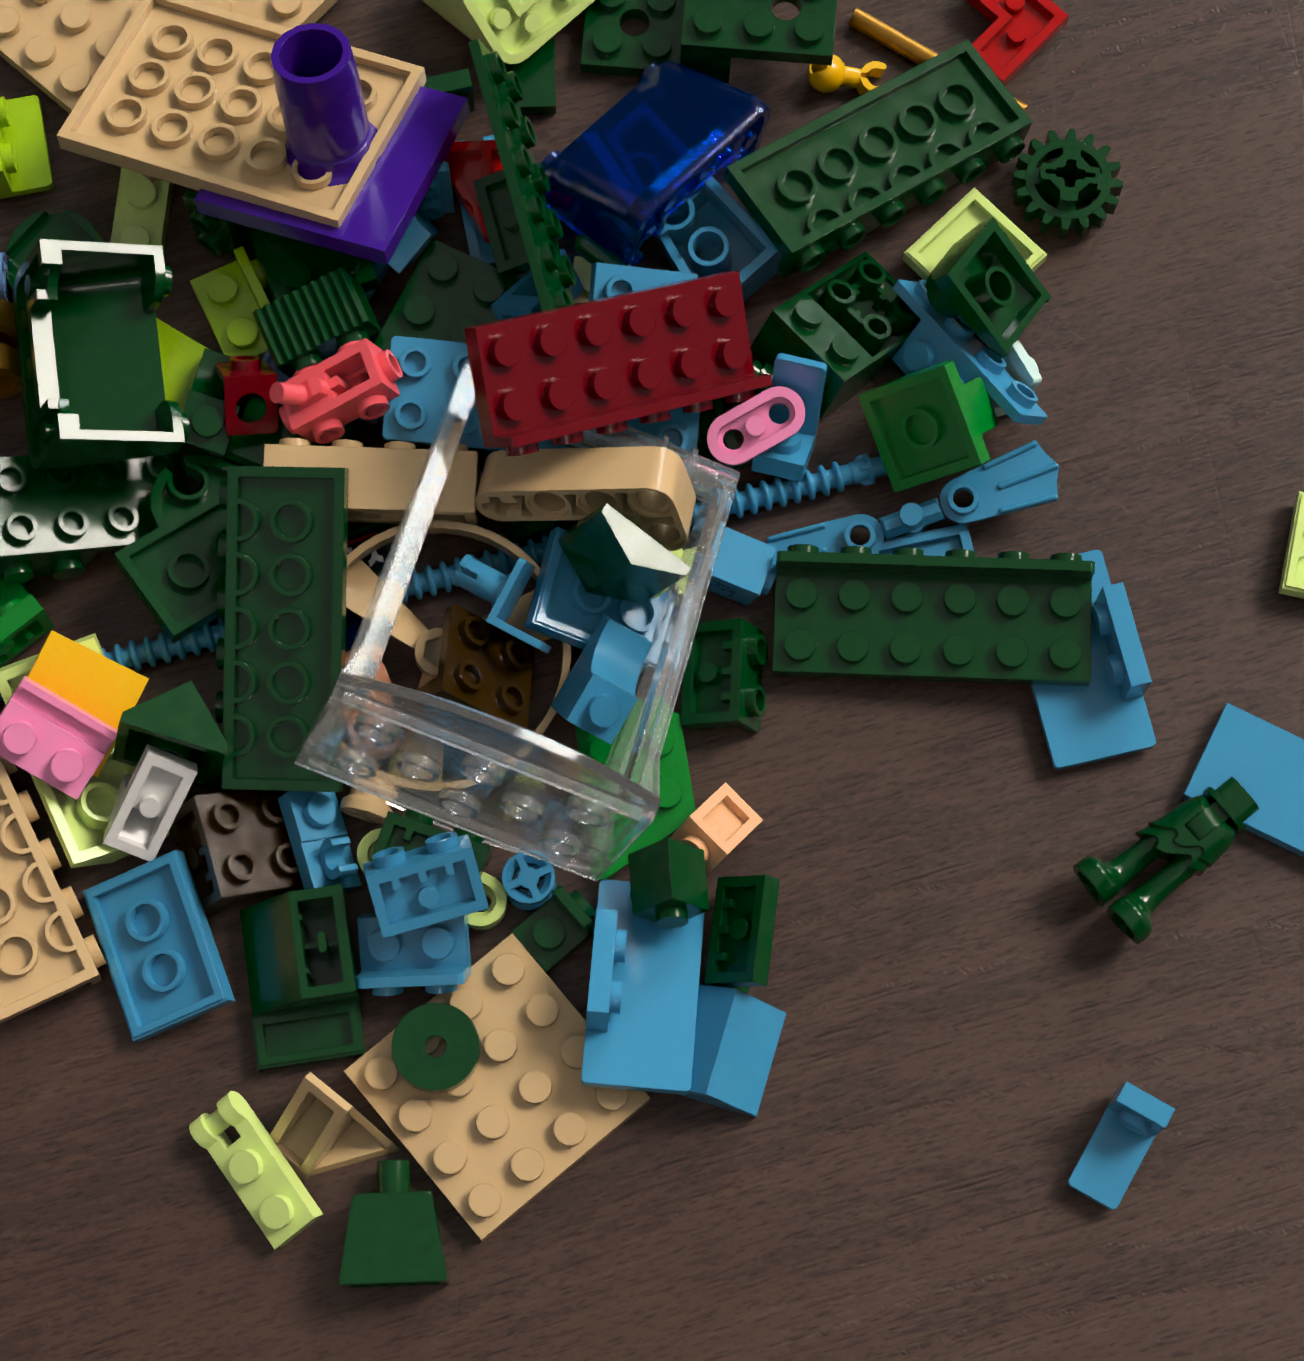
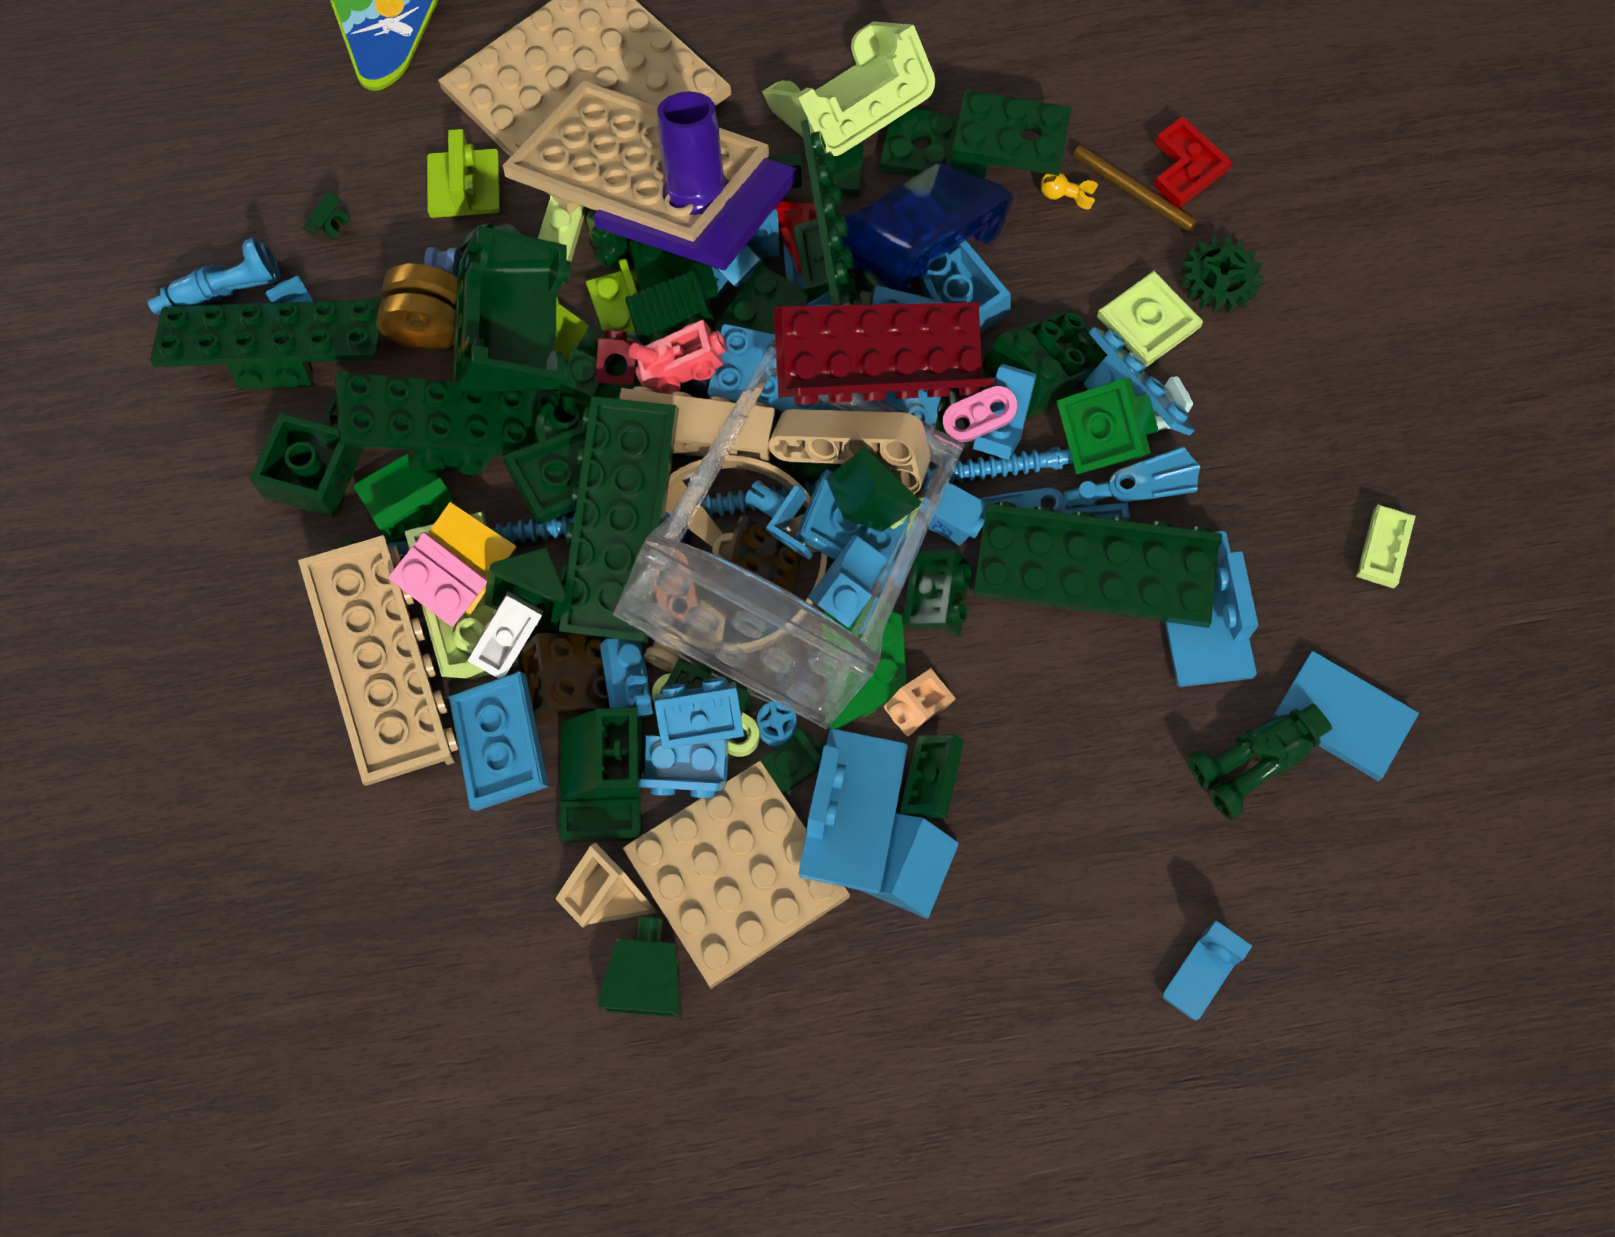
camera: 10 degrees right, 5 degrees down
(256, 1170) = (548, 914): yellowish green plate -> none
(429, 1023) = (700, 854): dark green piece -> none
(668, 883) = (880, 734): dark green brick -> none
(879, 156) = (1088, 240): dark green bracket -> none
(987, 286) = (1158, 335): dark green slope -> none

